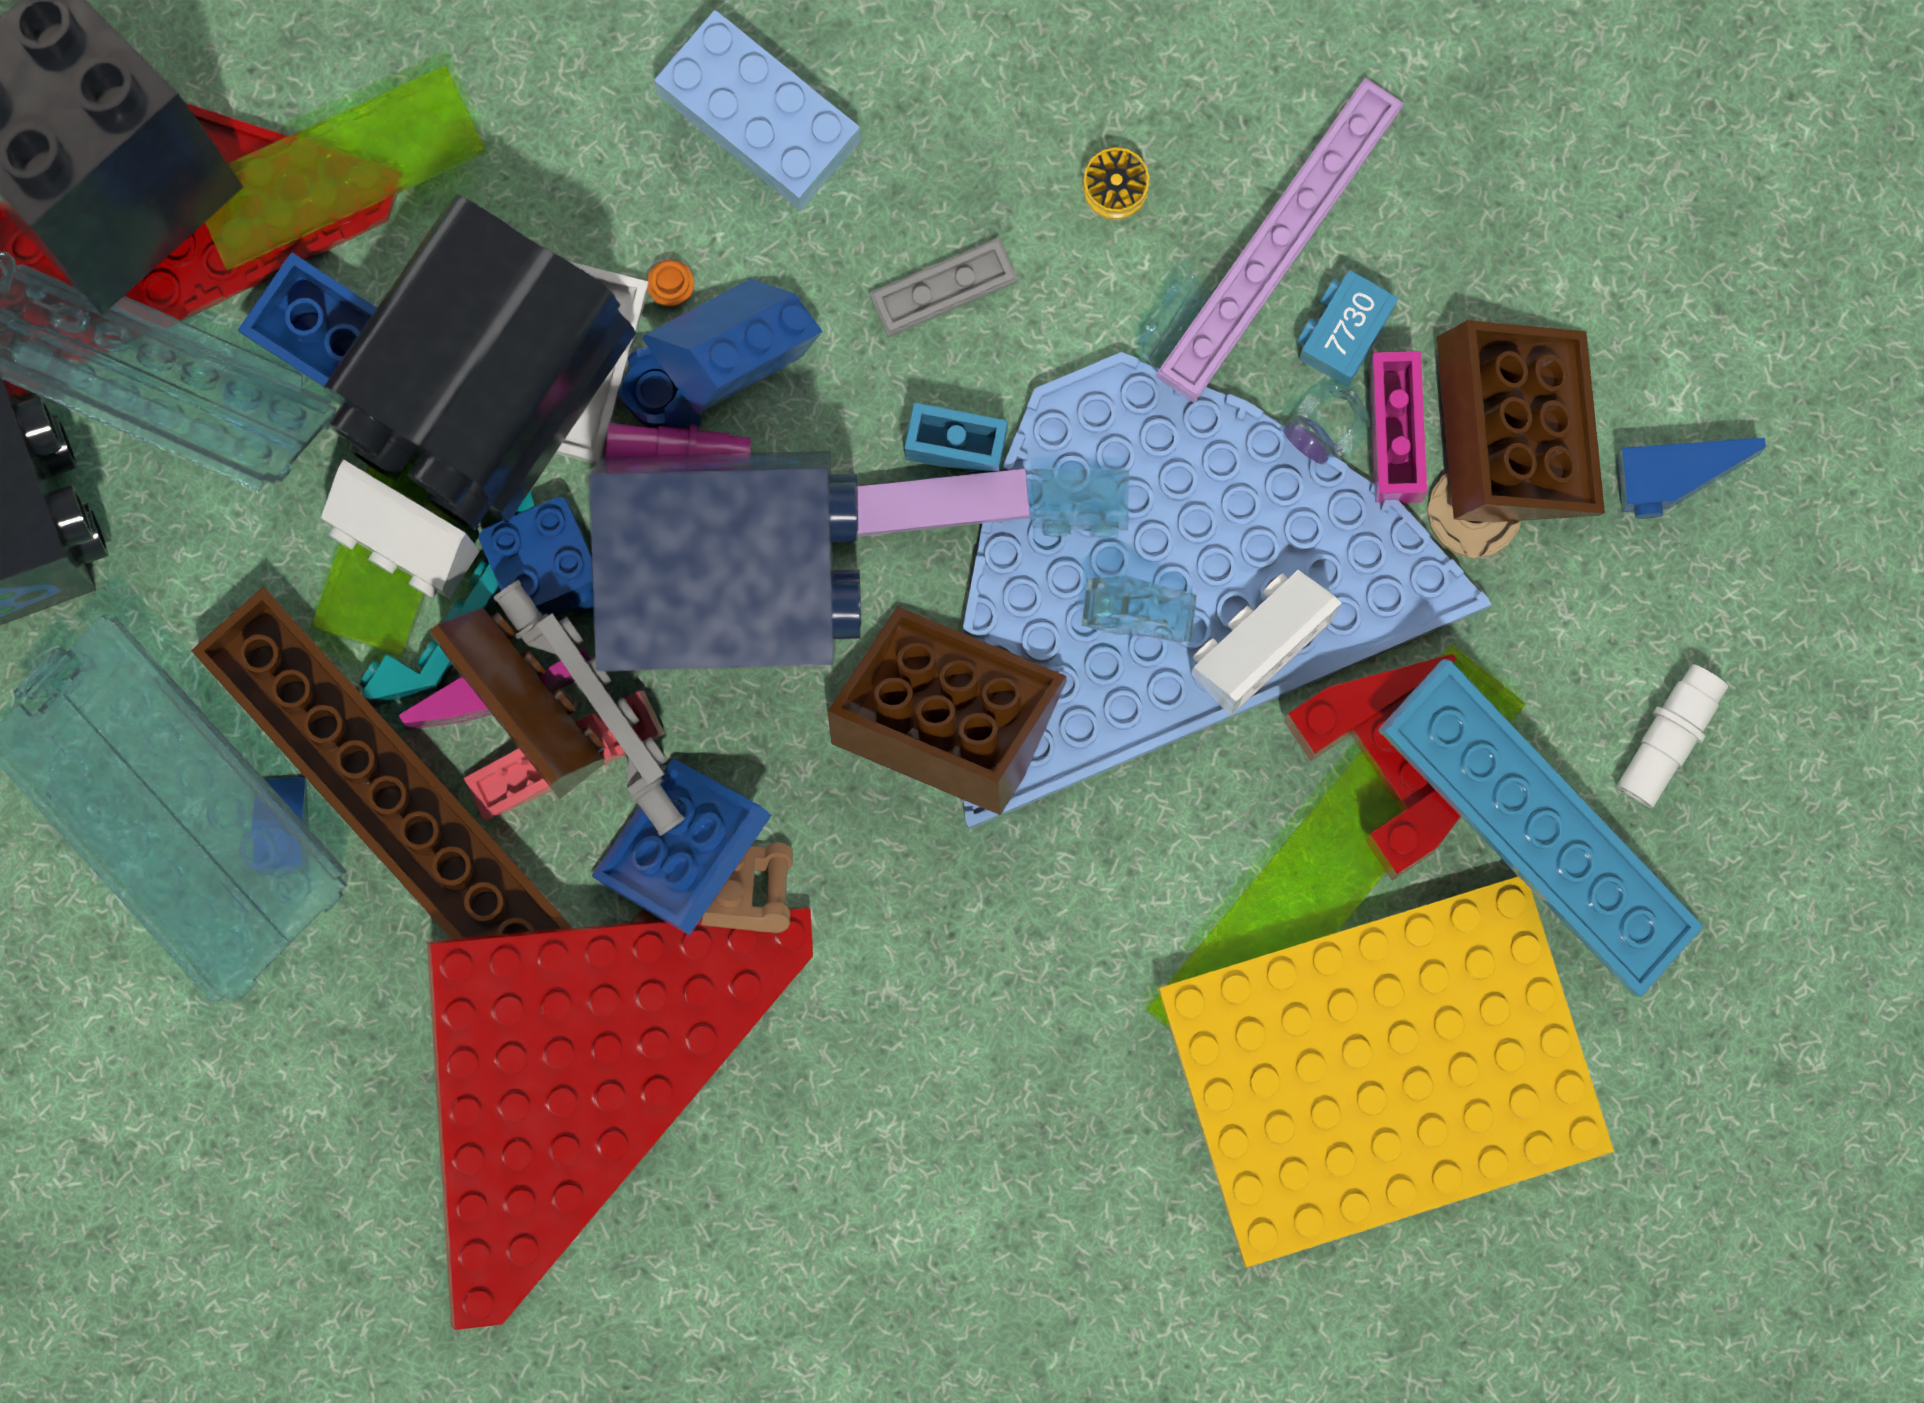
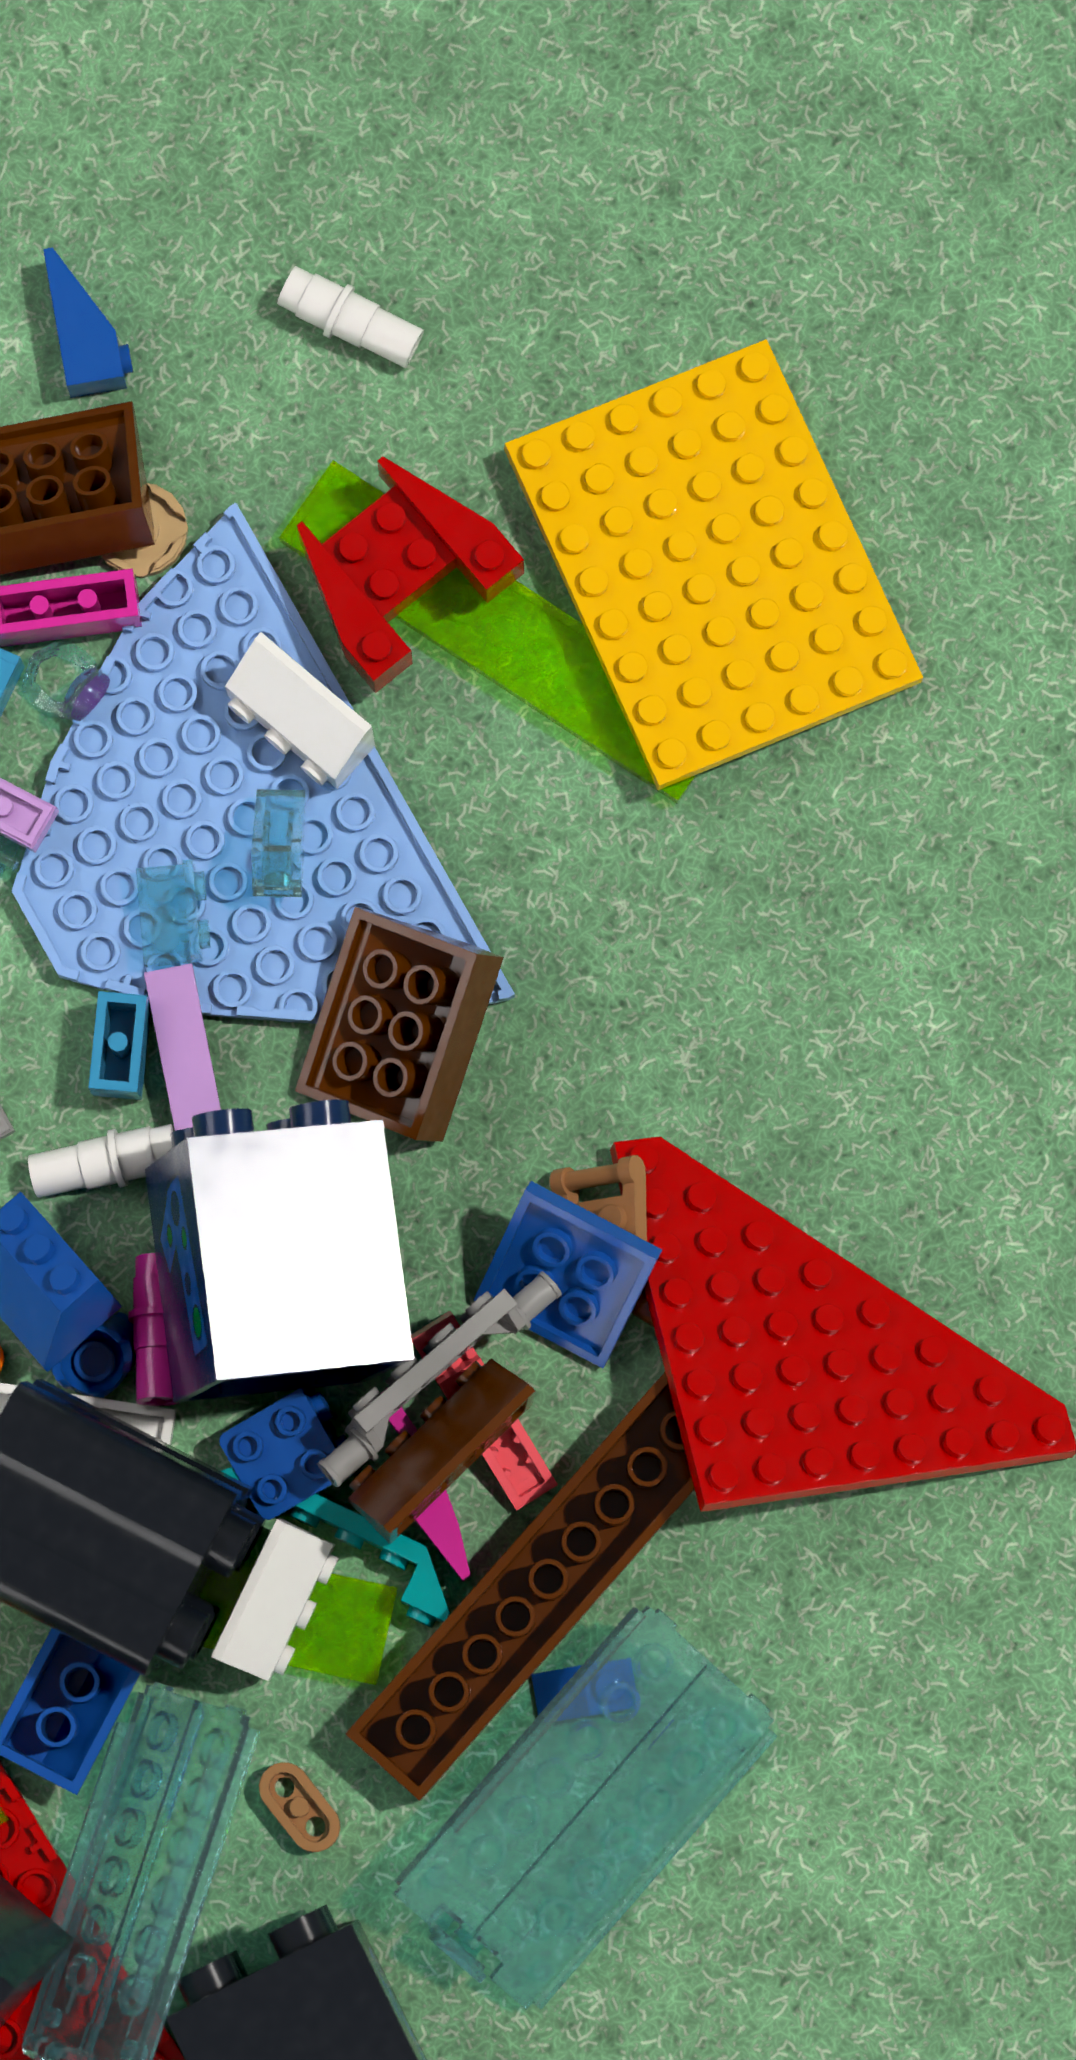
camera: 95 degrees left, 0 degrees up
(204, 539) = (299, 1807): none -> medium nougat plate
(847, 412) = (99, 1160): none -> white piece
(1541, 827) = (461, 426): dark azure plate -> none

